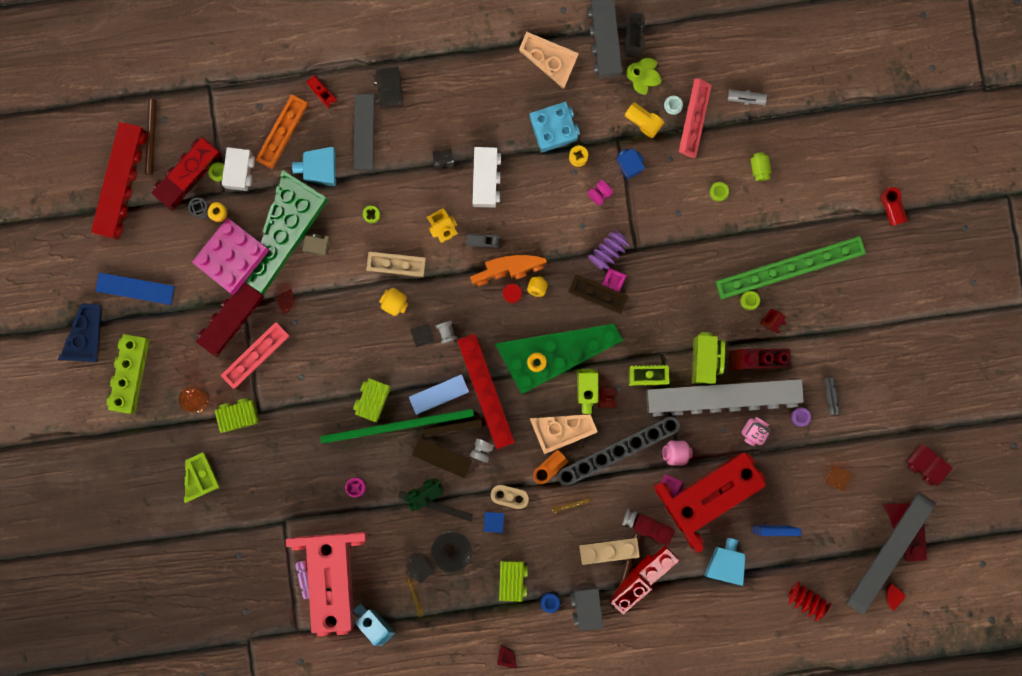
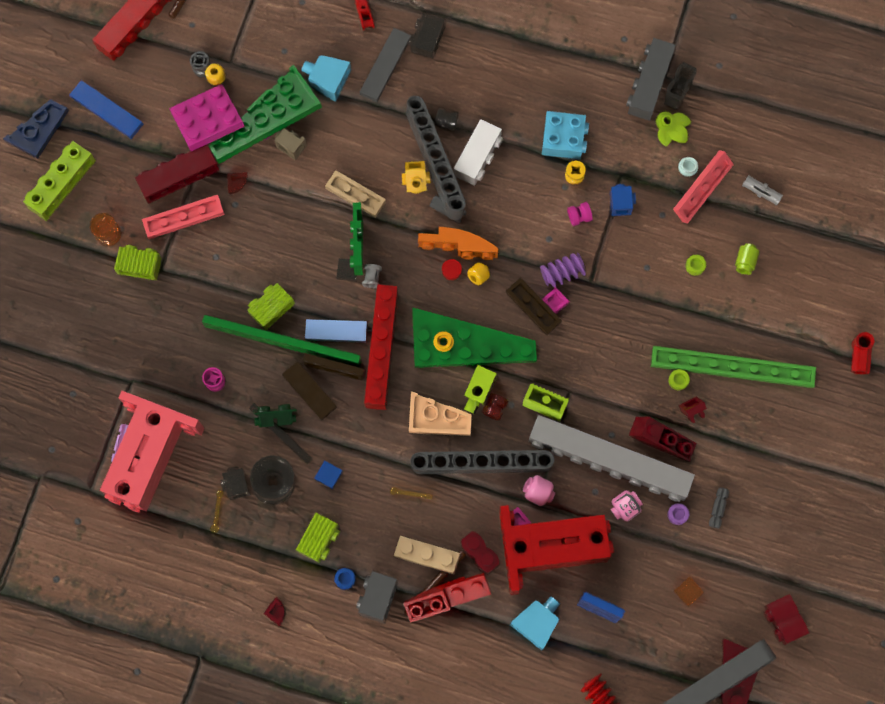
camera: 30 degrees right, 10 degrees down
(186, 173) = (205, 29): brick -> none
(199, 477) = (73, 304): lime wing -> none
(216, 171) = (234, 41): lime tile -> none
(237, 169) = (253, 44): white brick -> none
(282, 131) = (310, 32): orange tile -> none
(365, 214) = (358, 134): lime bush -> none
(379, 631) = (163, 518): medium azure torso -> none
(393, 301) = (335, 225): yellow head -> none
(420, 309) = (356, 242): none -> green wing
(453, 208) = (438, 165): none -> dark grey beam
(485, 447) = (350, 400): light grey wheel -> none
(509, 497) = (356, 457): tan plate -> none
(549, 57) = (590, 74): light nougat wing -> none
(551, 466) = (408, 446): orange piece -> none
(629, 518) = (461, 531): light grey bush -> none
(648, 122) = (655, 171): yellow piece -> none
(707, 358) = (610, 411): lime brick -> none

